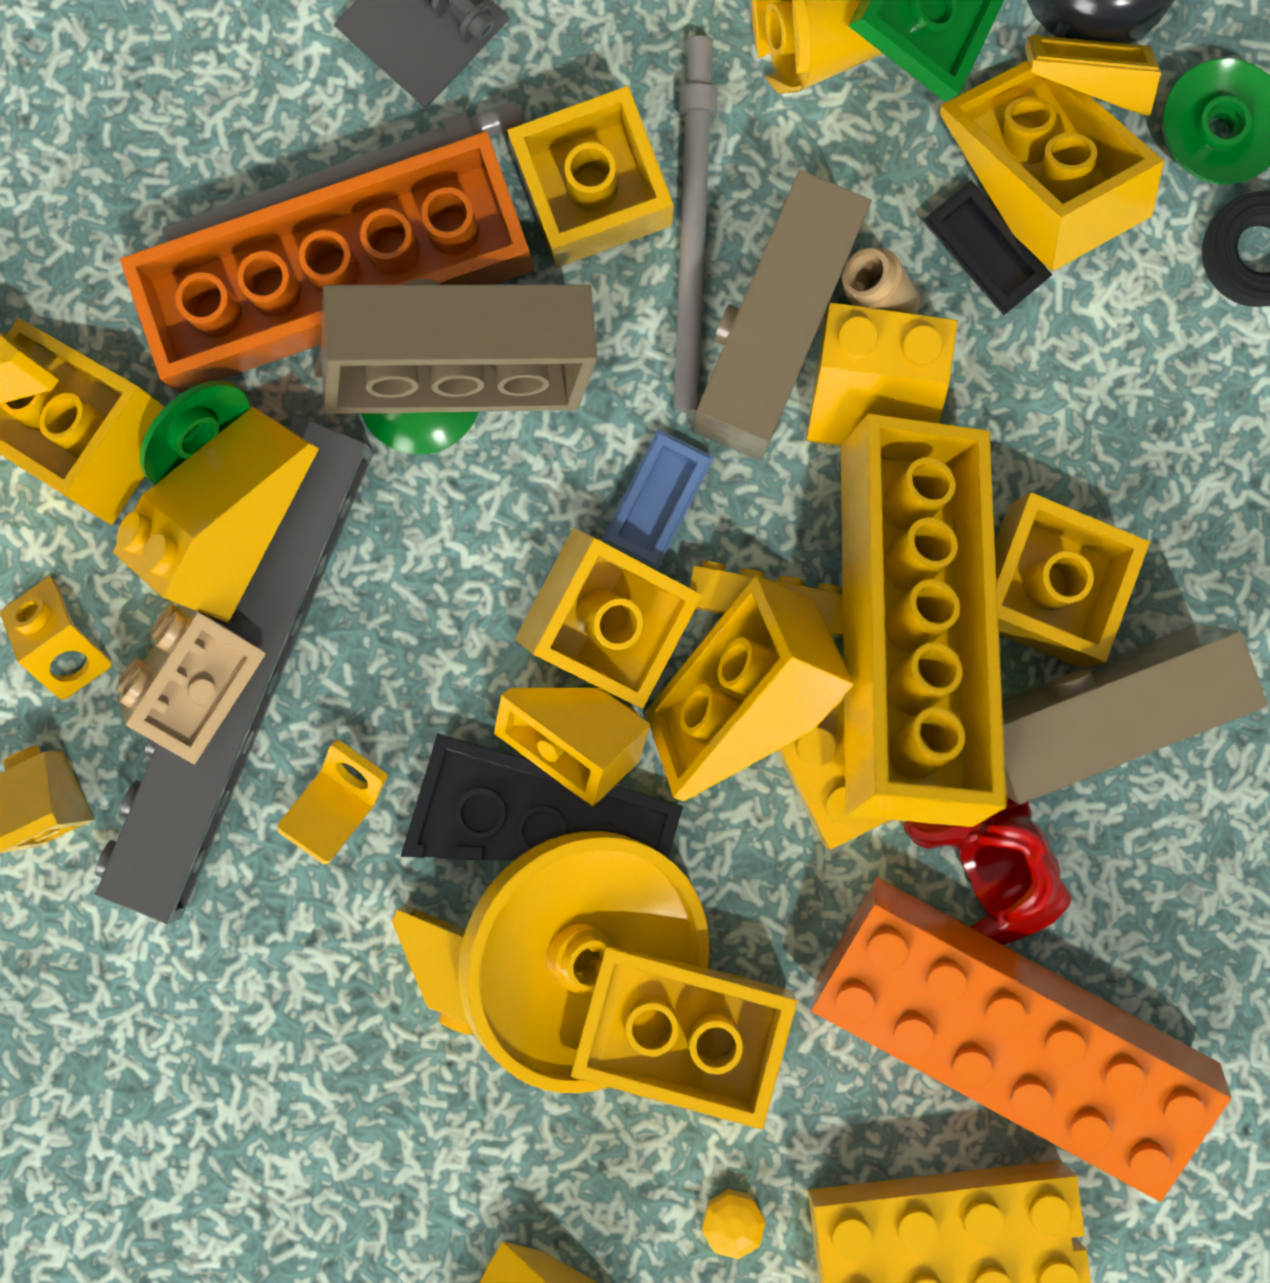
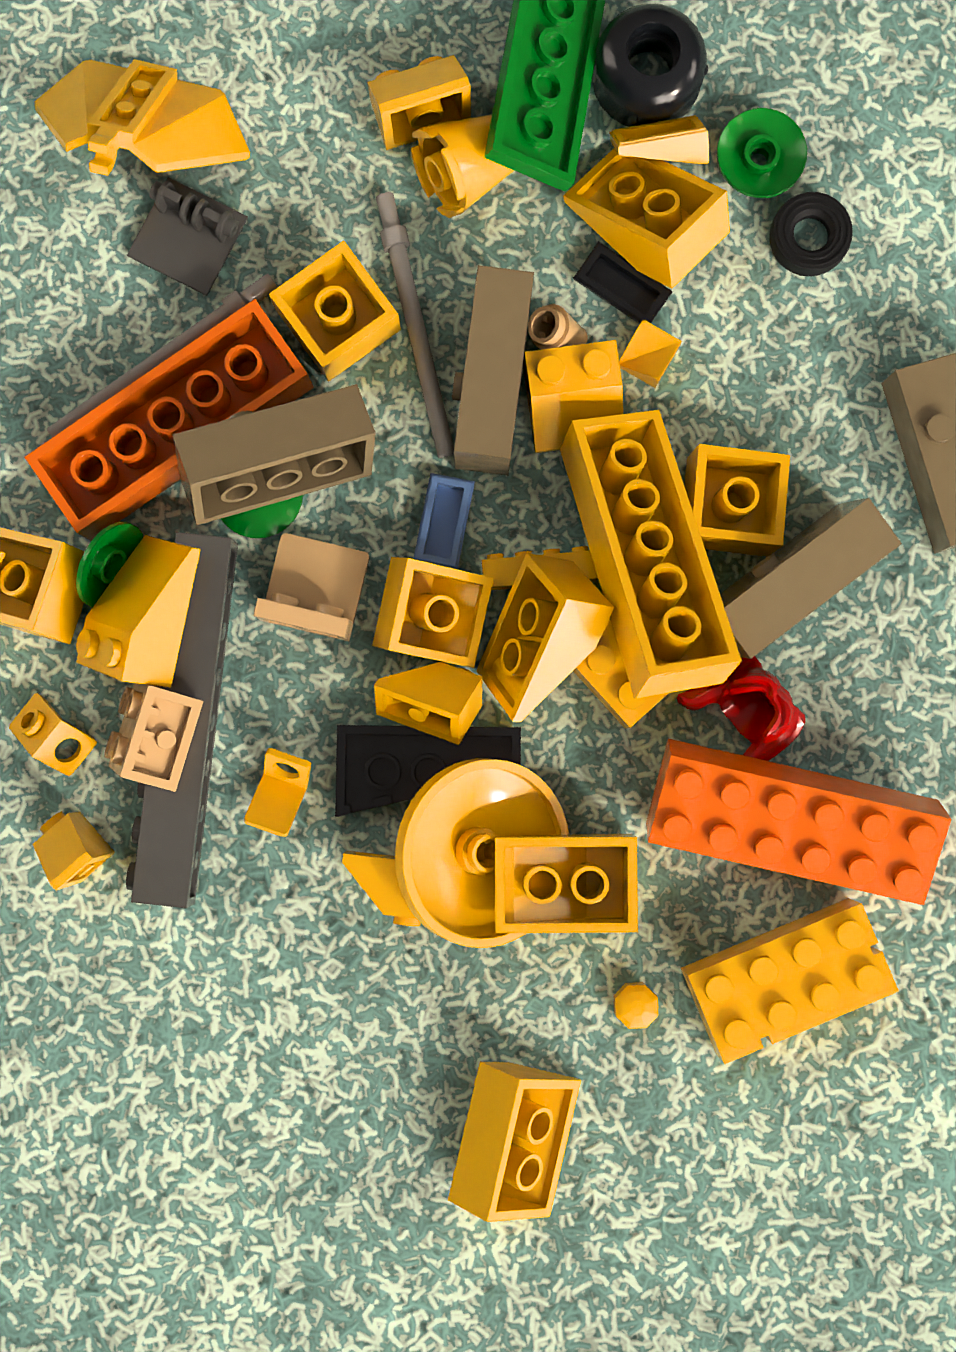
camera: 20 degrees left, 0 degrees up
(459, 539) = (314, 587): none -> tan bracket
(997, 349) = (649, 353): none -> yellow slope

